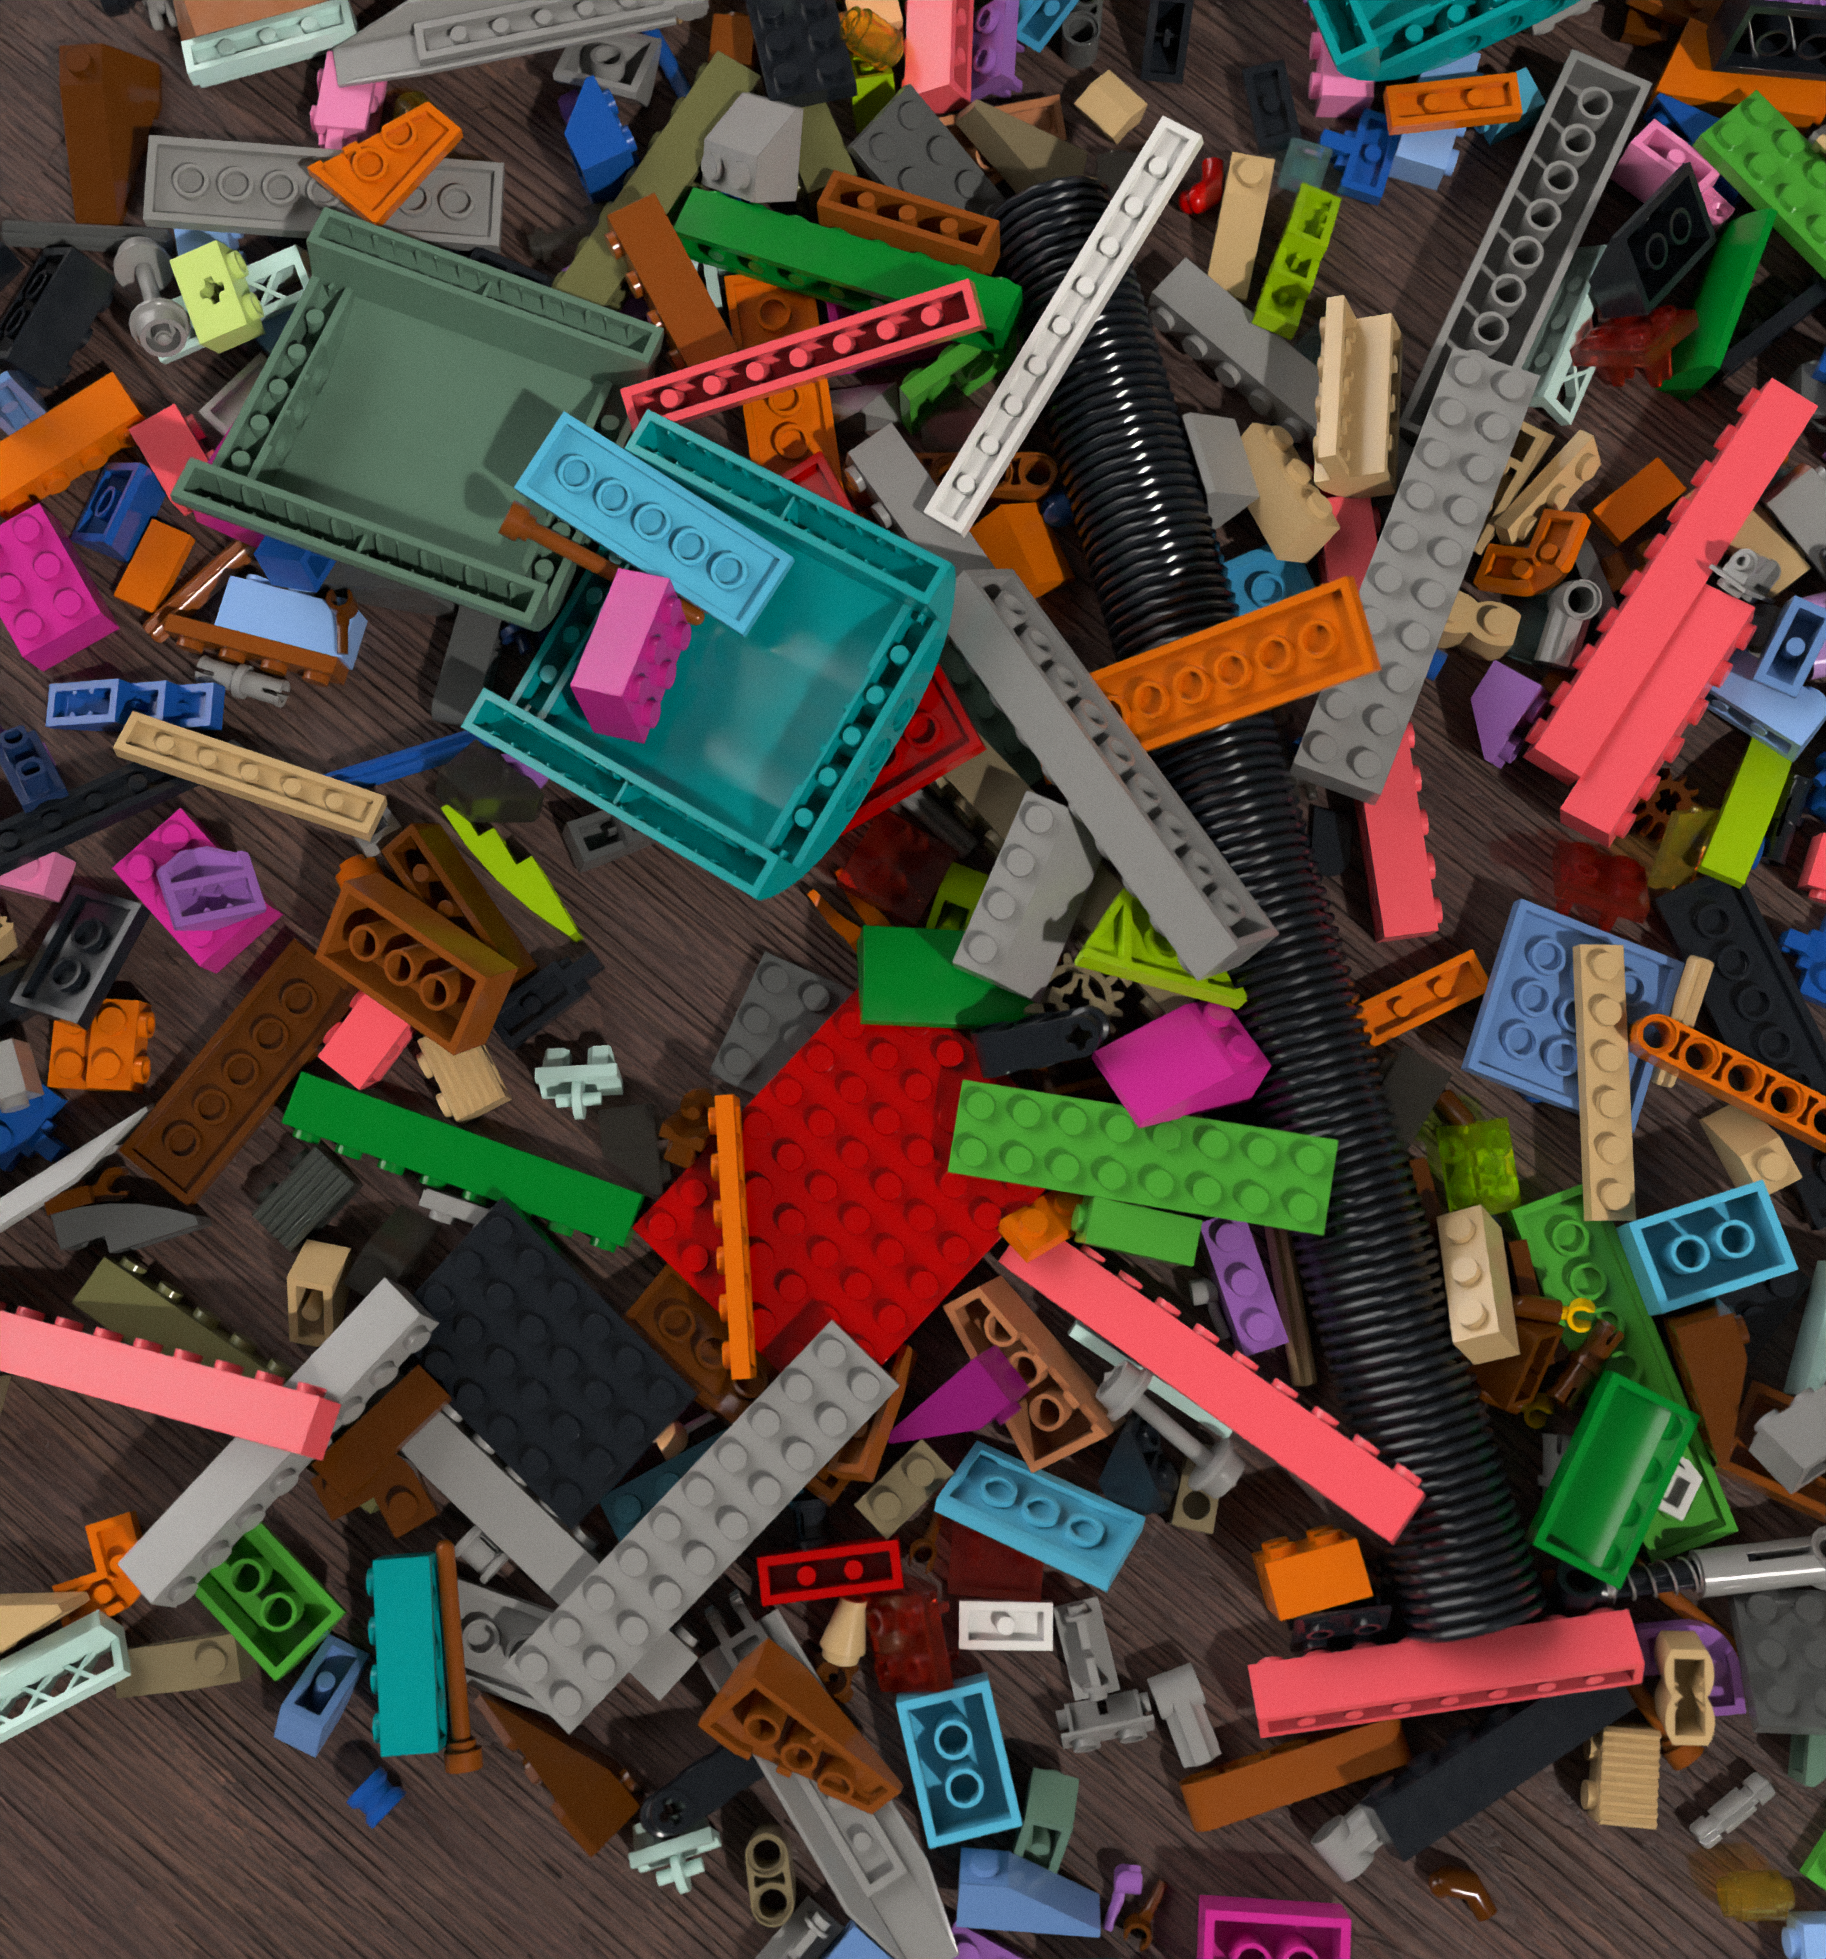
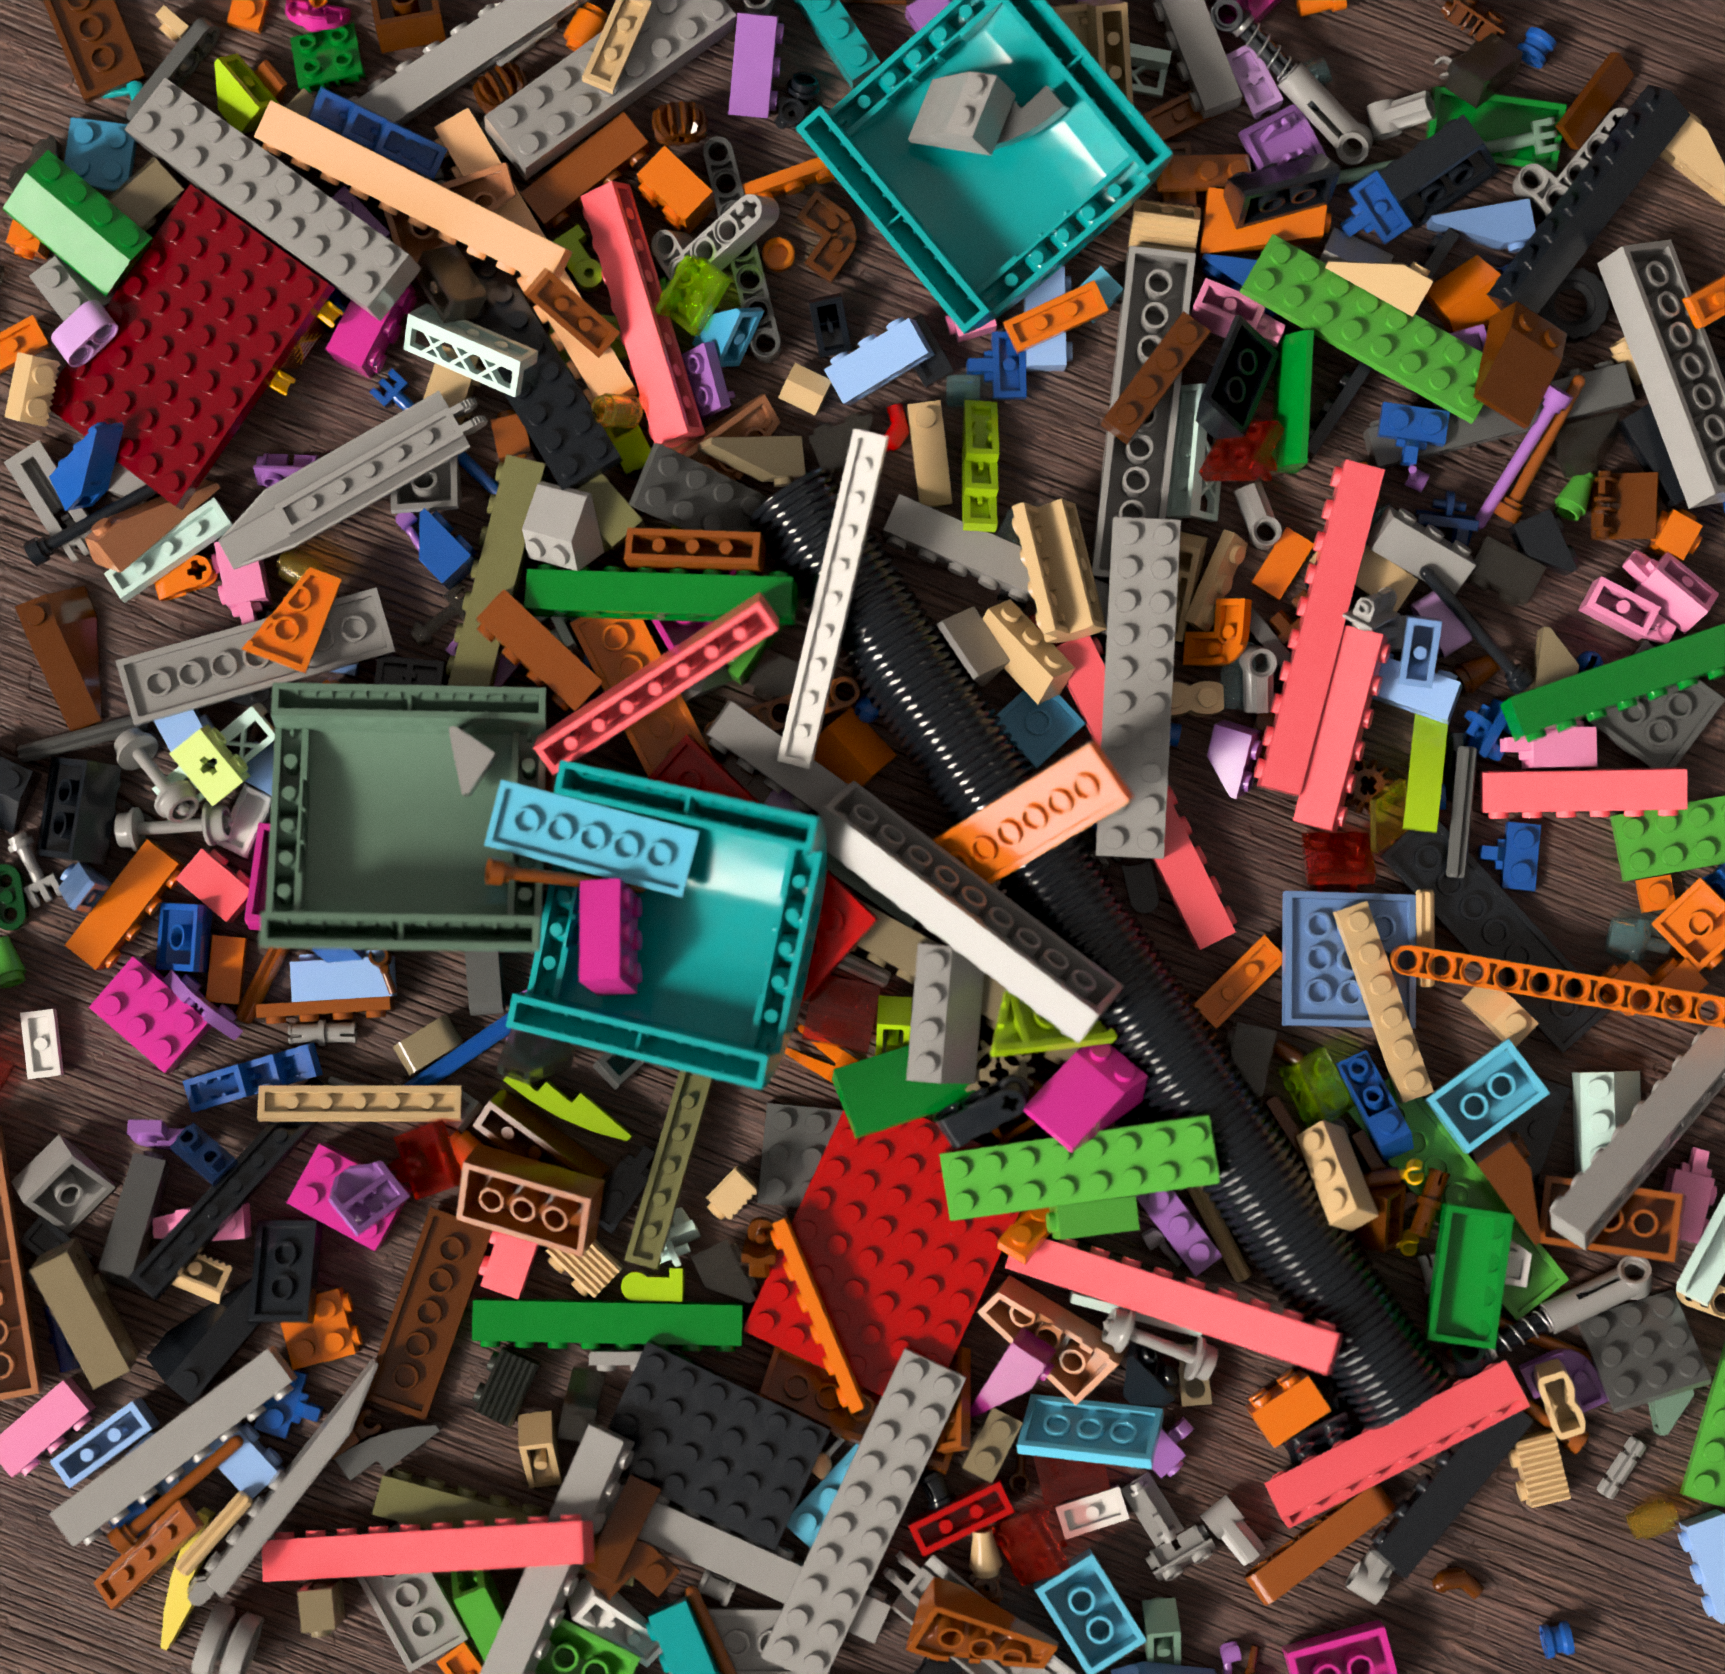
camera: 20 degrees left, 5 degrees up
(82, 1454) = (414, 1614): none -> light grey plate
(95, 573) = (188, 992): none -> medium lavender plate
(162, 1465) = (478, 1606): none -> bright green slope
(200, 378) = (132, 829): none -> light grey piece
(279, 88) = (183, 579): none -> orange piece
(307, 875) = (426, 1160): none -> clear red plate
(329, 1550) = (613, 1621): none -> white slope
(364, 736) = (428, 1045): none -> dark tan beam
(526, 1131) = (655, 1288): none -> lime leg
(537, 385) = (471, 760): none -> light grey slope
(614, 982) = (669, 1169): none -> olive plate
(677, 1047) = (732, 1194): none -> tan brick
(1133, 1582) = (1168, 1454): none -> medium lavender brick
(1217, 91) = (878, 360): none -> light blue brick
(1553, 1216) = (1376, 1106): none -> blue slope
(1558, 205) = (1155, 378): none -> reddish brown brick
(1622, 44) = (1164, 226): none -> tan brick
(1626, 429) = (1257, 512): none -> light grey piece
(1779, 875) = (1461, 812): none -> dark grey axle

